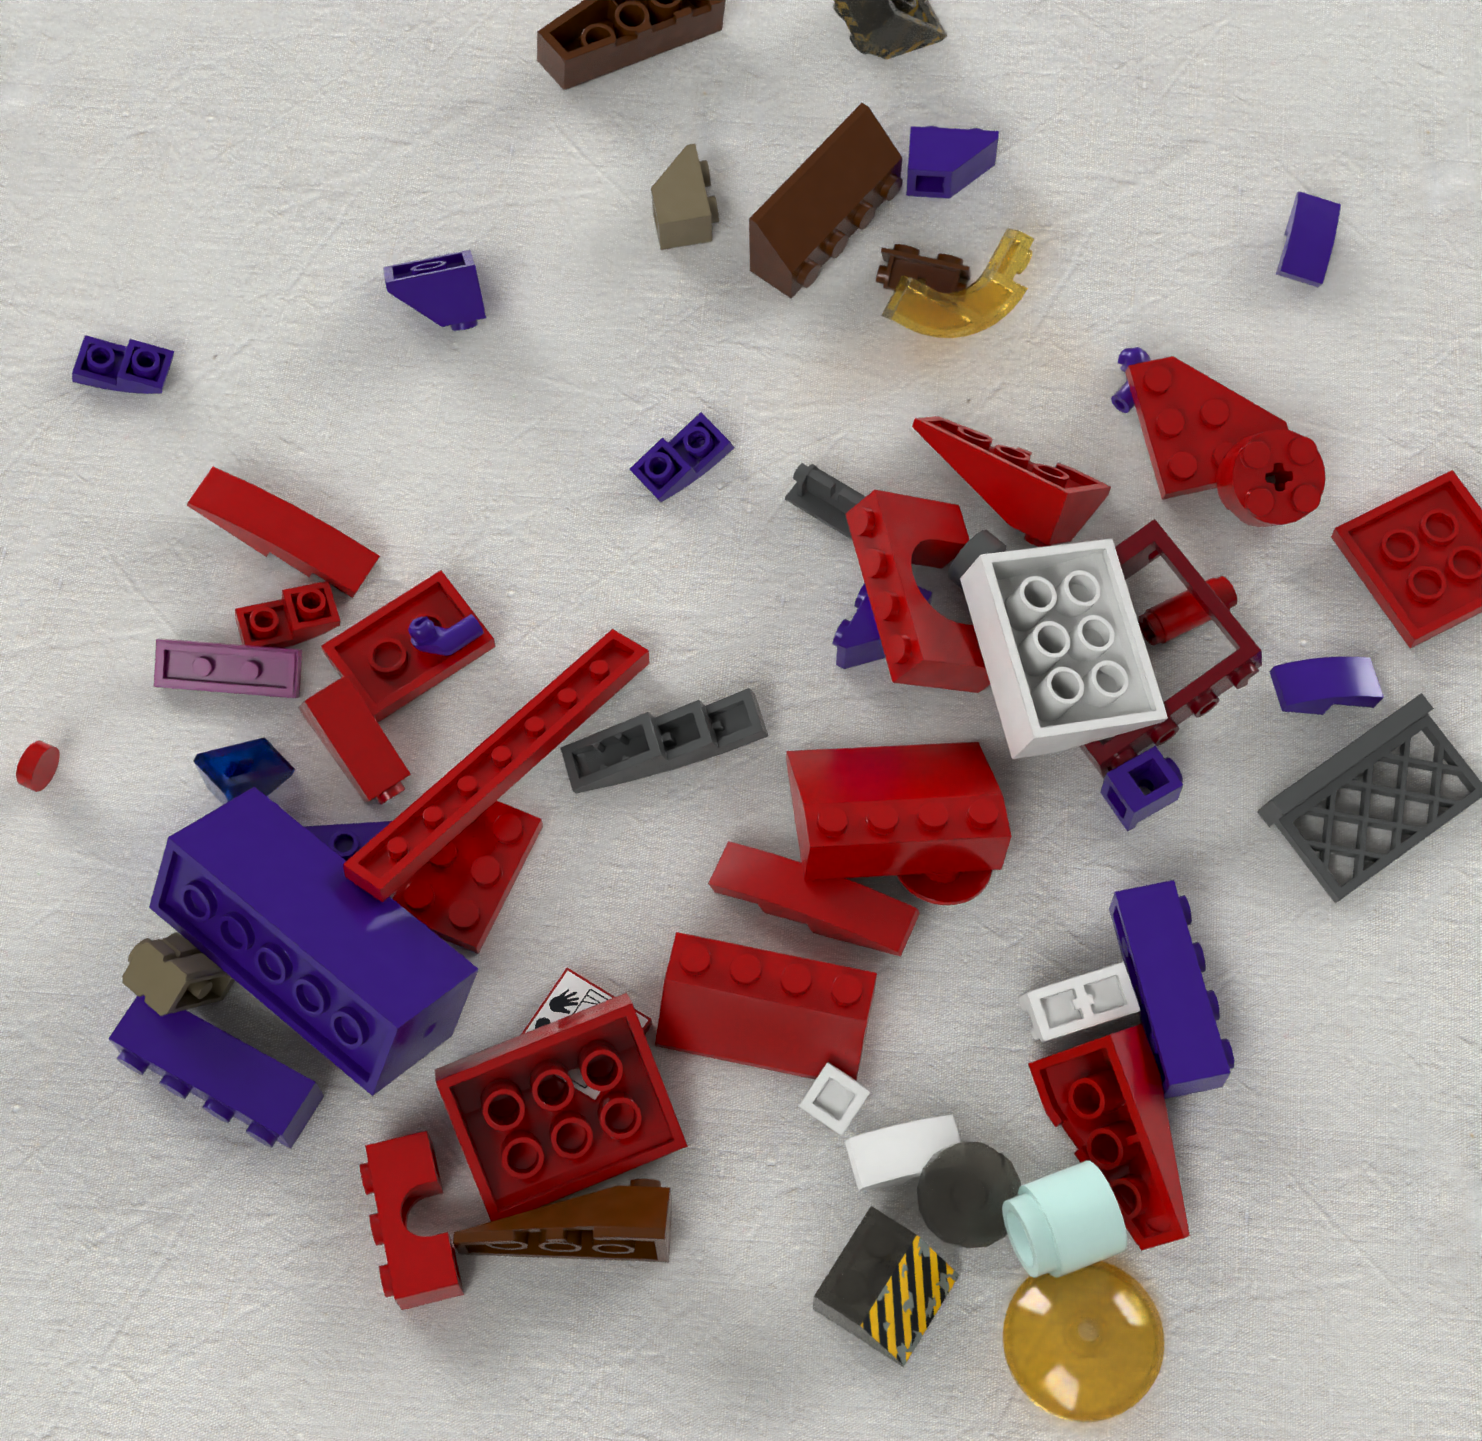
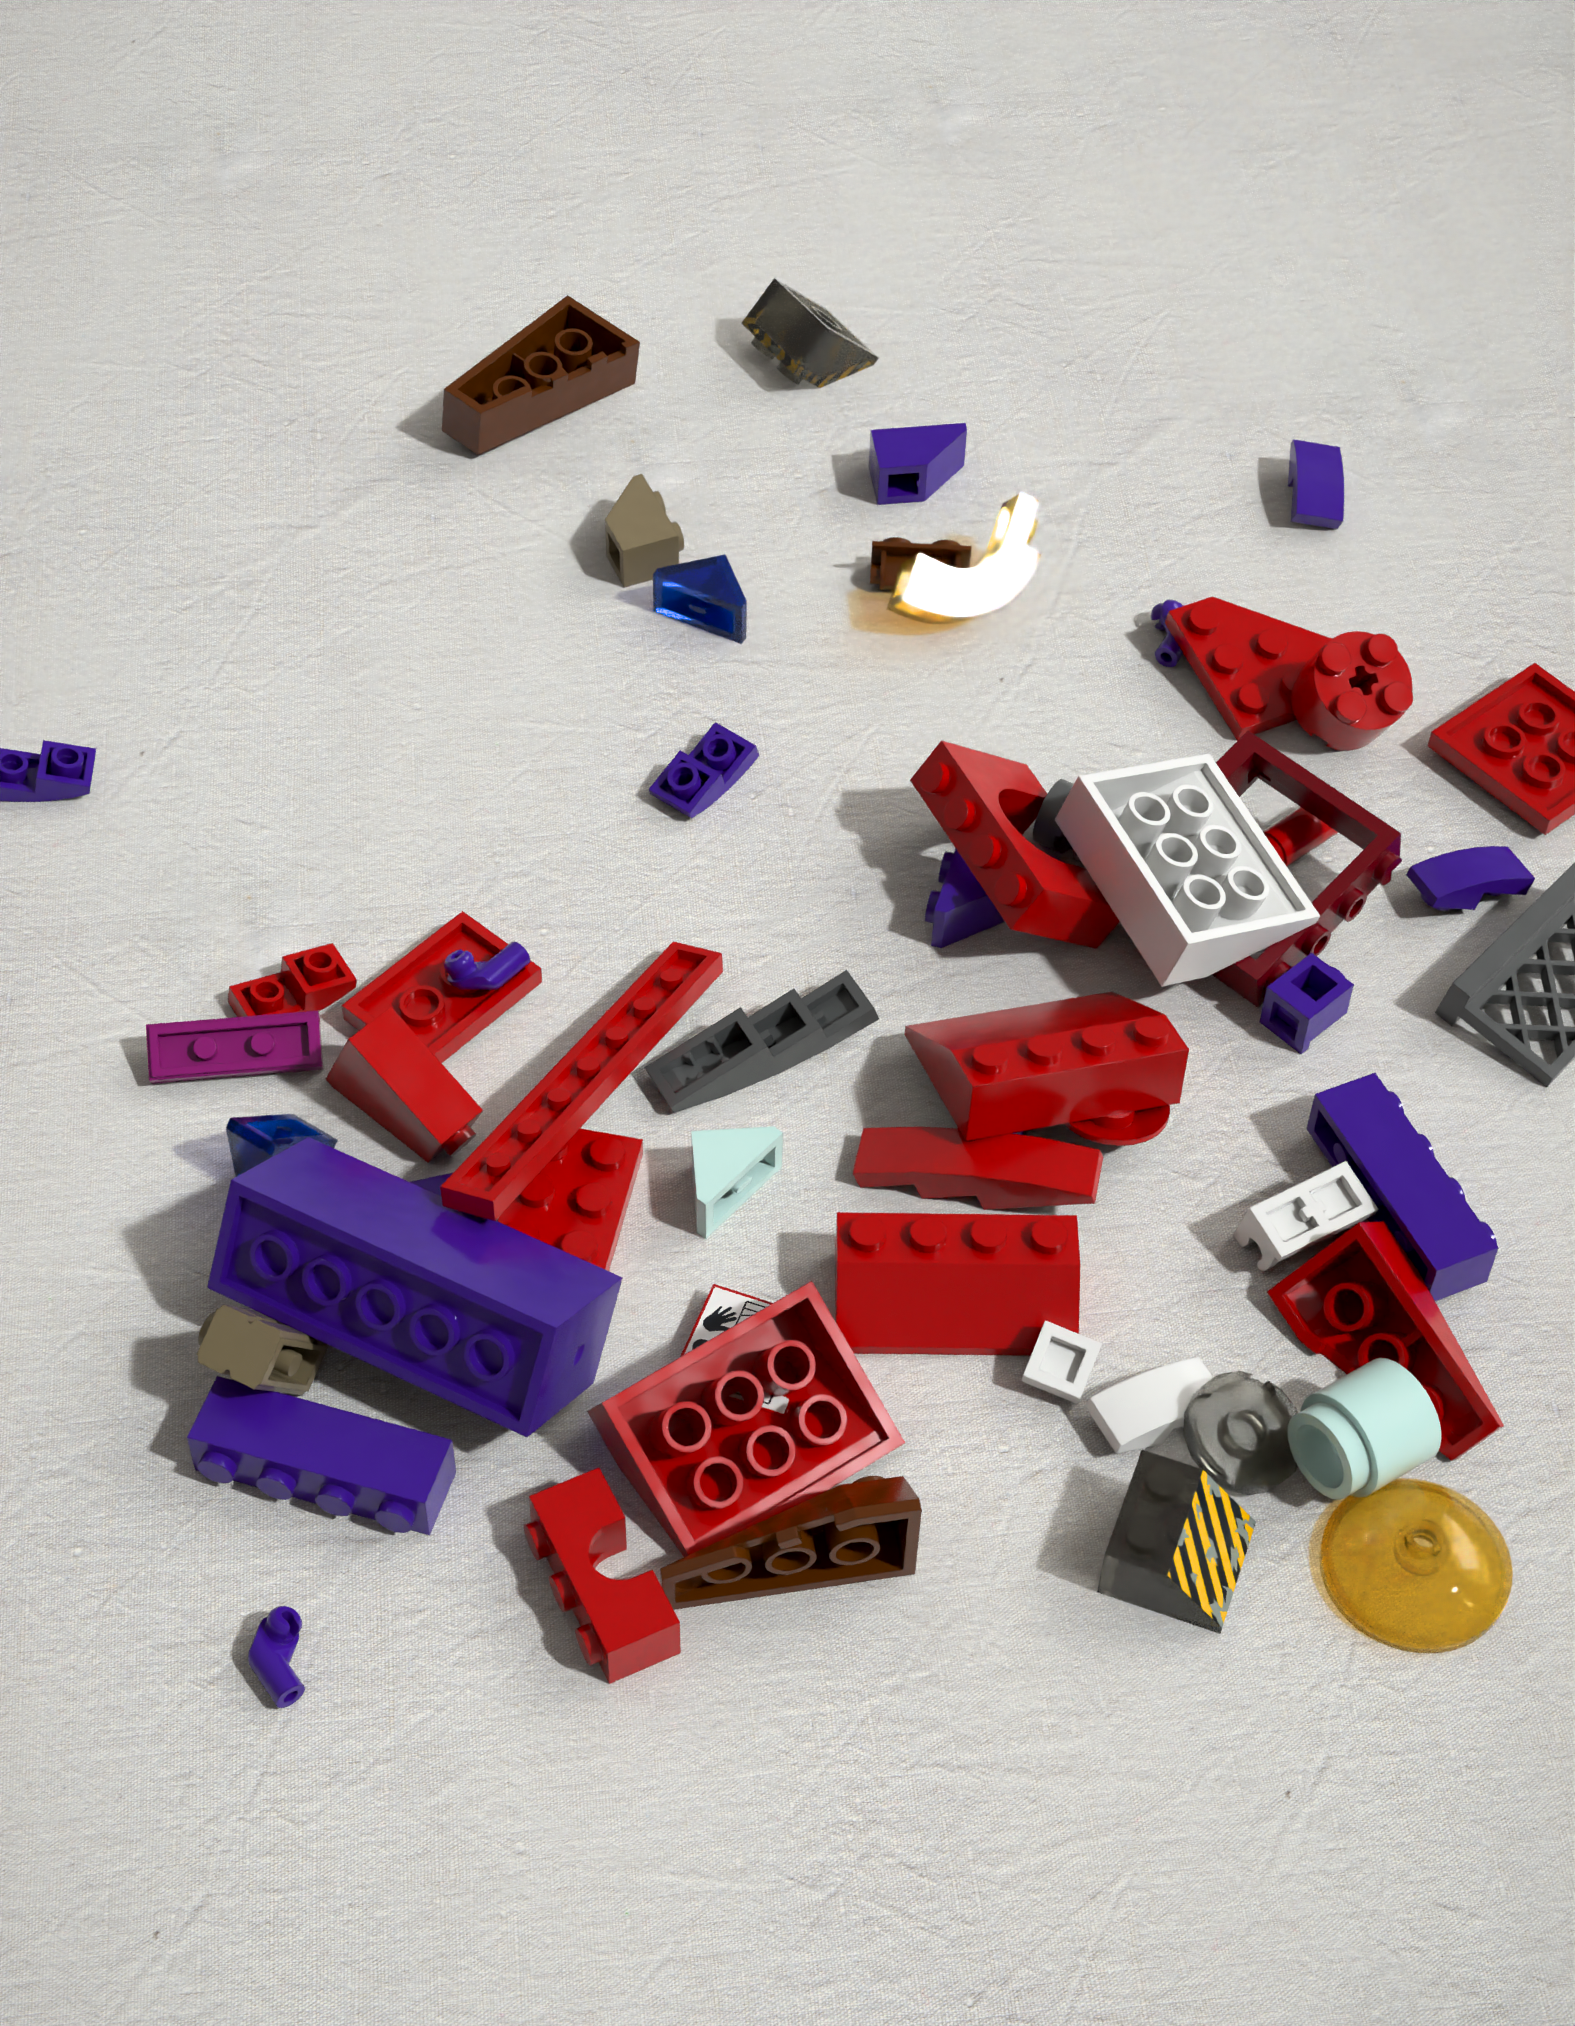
camera: 15 degrees left, 15 degrees down
(37, 766) = (28, 1178): red tile -> none
(142, 1235) = (272, 1653): none -> dark purple arm
(283, 530) = (265, 897): red slope -> none
(440, 288) = (394, 648): dark purple slope -> none
(602, 864) = (730, 1169): none -> light aqua slope
(722, 276) = (703, 596): none -> clear blue slope
(823, 497) = (870, 784): dark grey hinge -> none
(824, 203) = (798, 510): reddish brown slope -> none
(1028, 496) = (1075, 738): red wedge -> none

